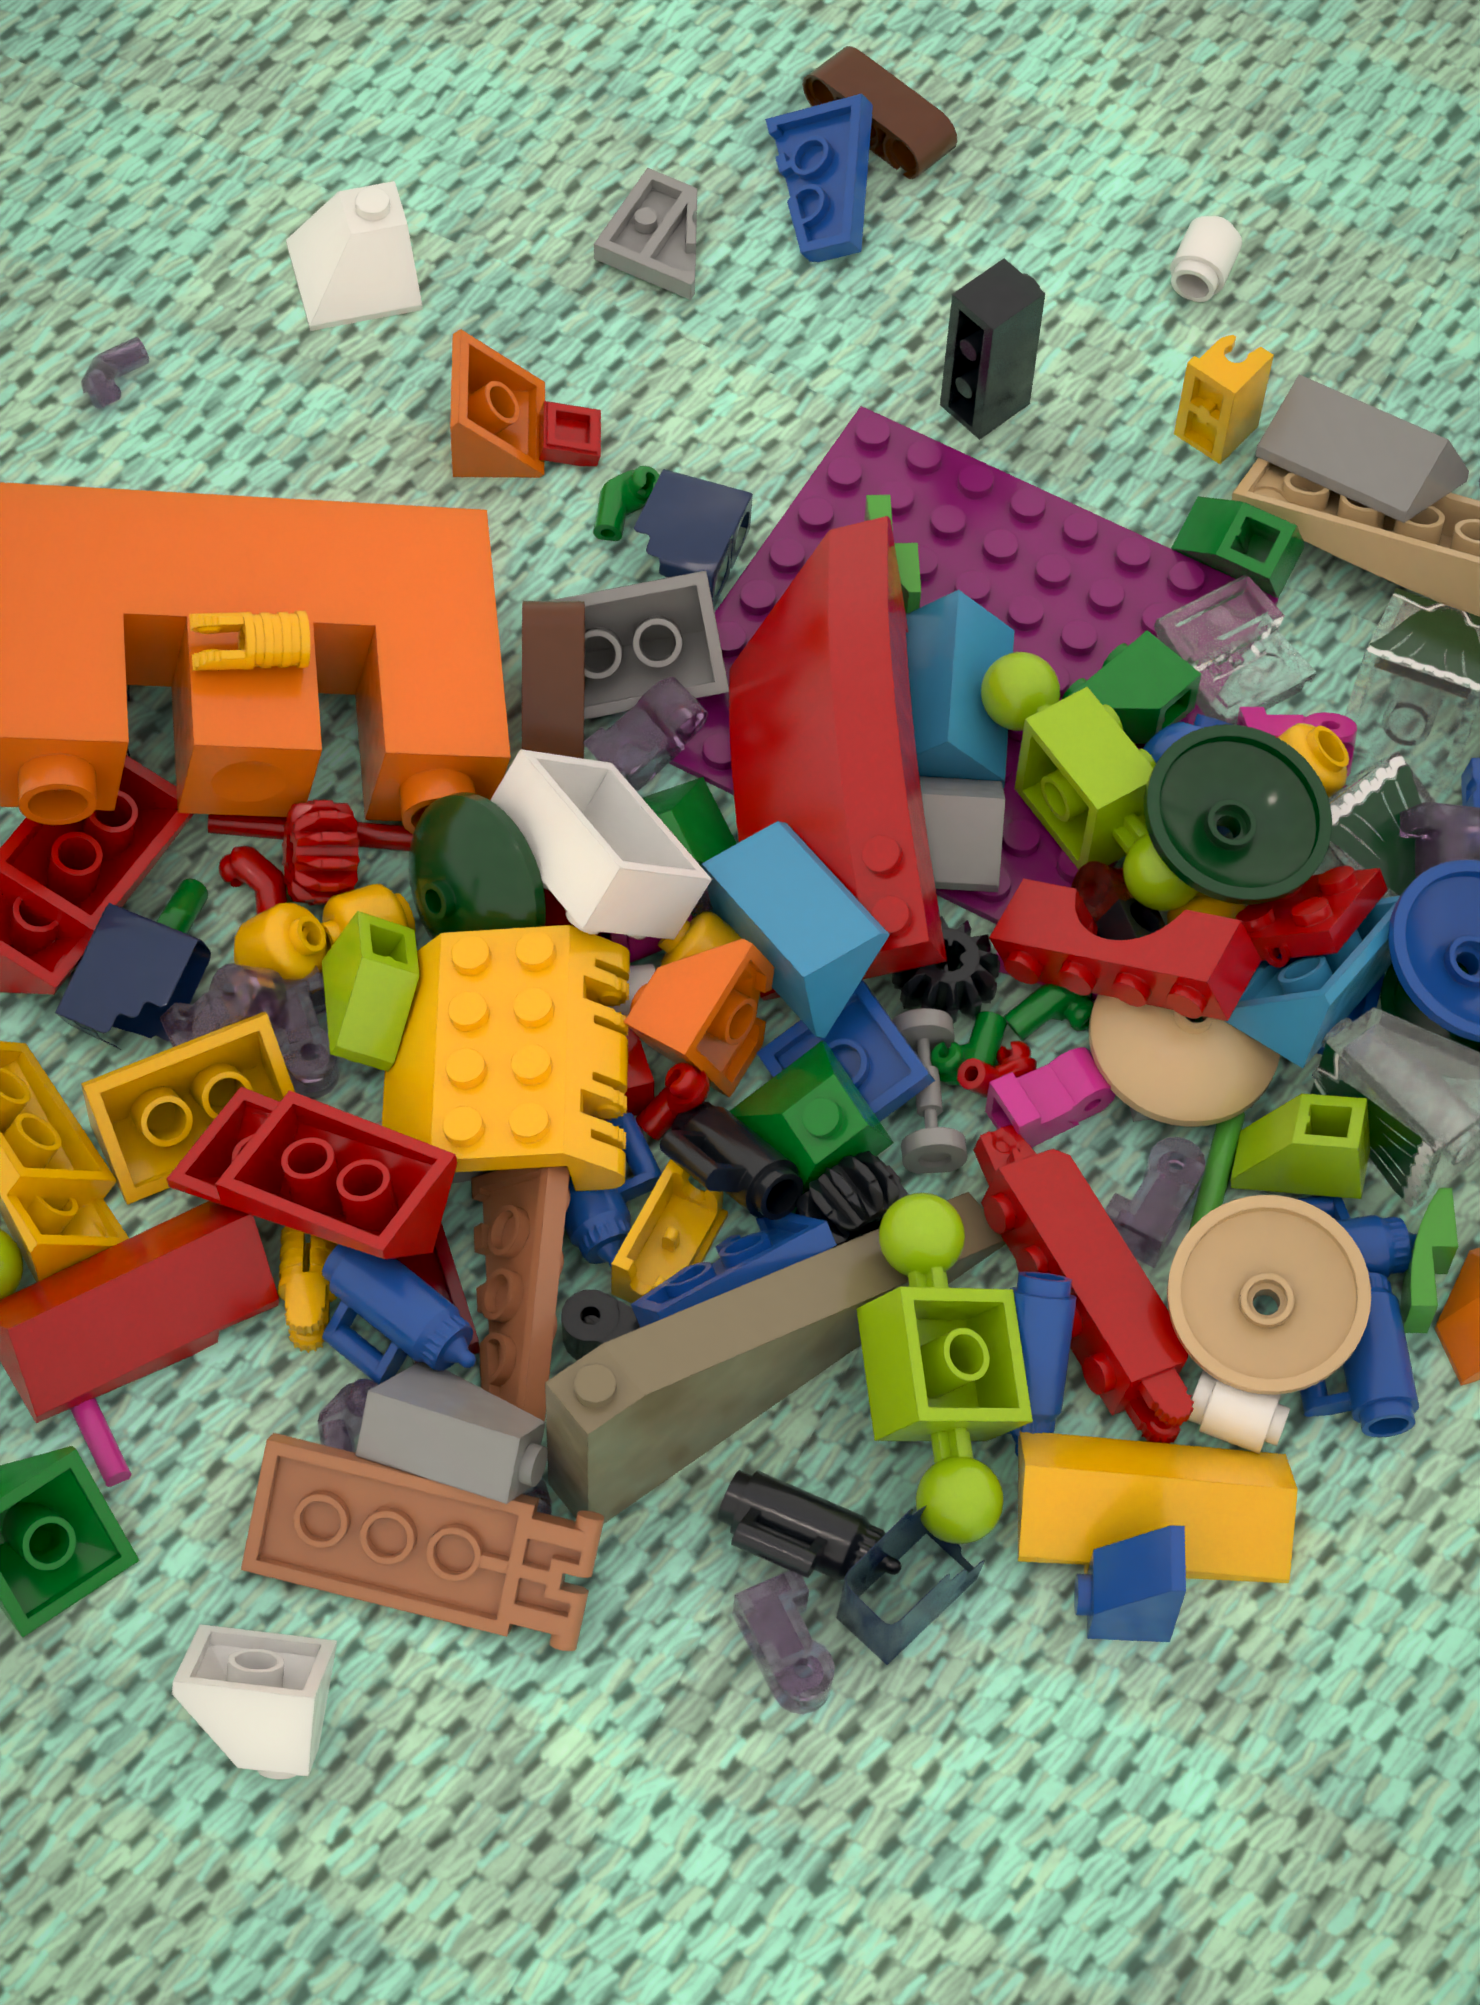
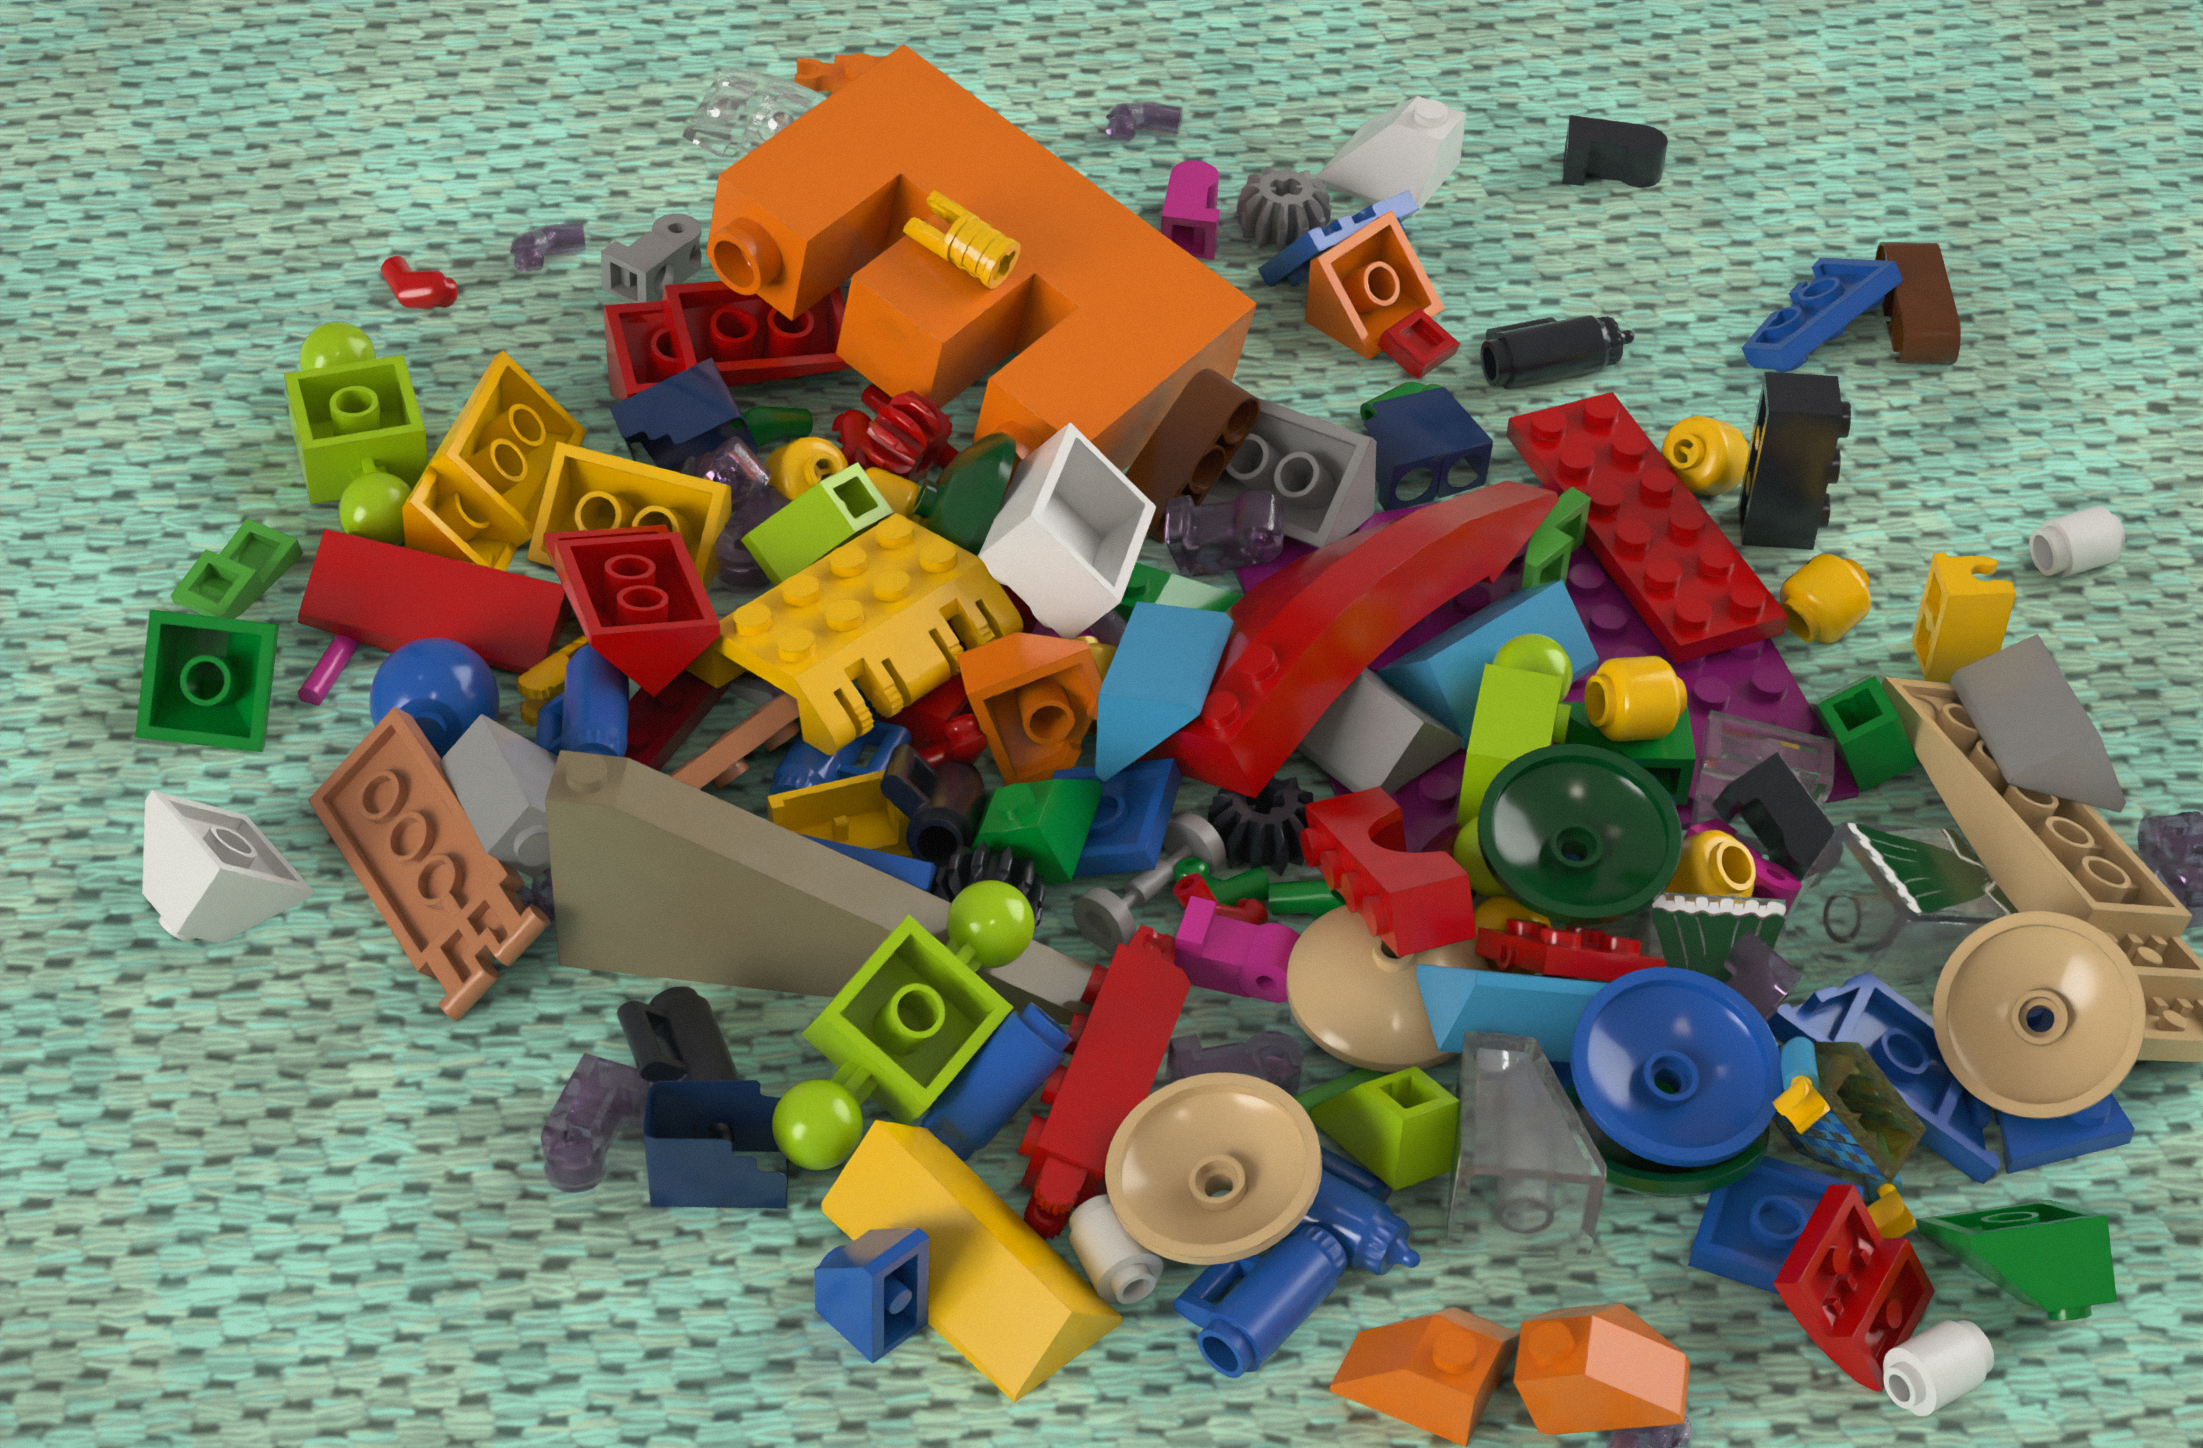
camera: 45 degrees right, 15 degrees down
(241, 1393) = (438, 685): none -> blue brick
(260, 441) = (1191, 209): none -> dark pink leg
(334, 381) = (1282, 206): none -> light grey gear
(416, 381) = (1295, 259): none -> blue wing
(512, 129) = (1613, 152): none -> black leg
(654, 234) = (1640, 270): light grey wing -> none
(678, 365) = (1551, 349): none -> black piece
(906, 367) = (1706, 454): none -> yellow head
(937, 482) = (1648, 528): none -> red plate
(1101, 448) = (1825, 598): none -> yellow head
(1134, 660) = (1635, 698): none -> yellow head
(1288, 672) = (1778, 814): none -> black leg
(1430, 1255) = (1409, 1267): bright green slope -> none

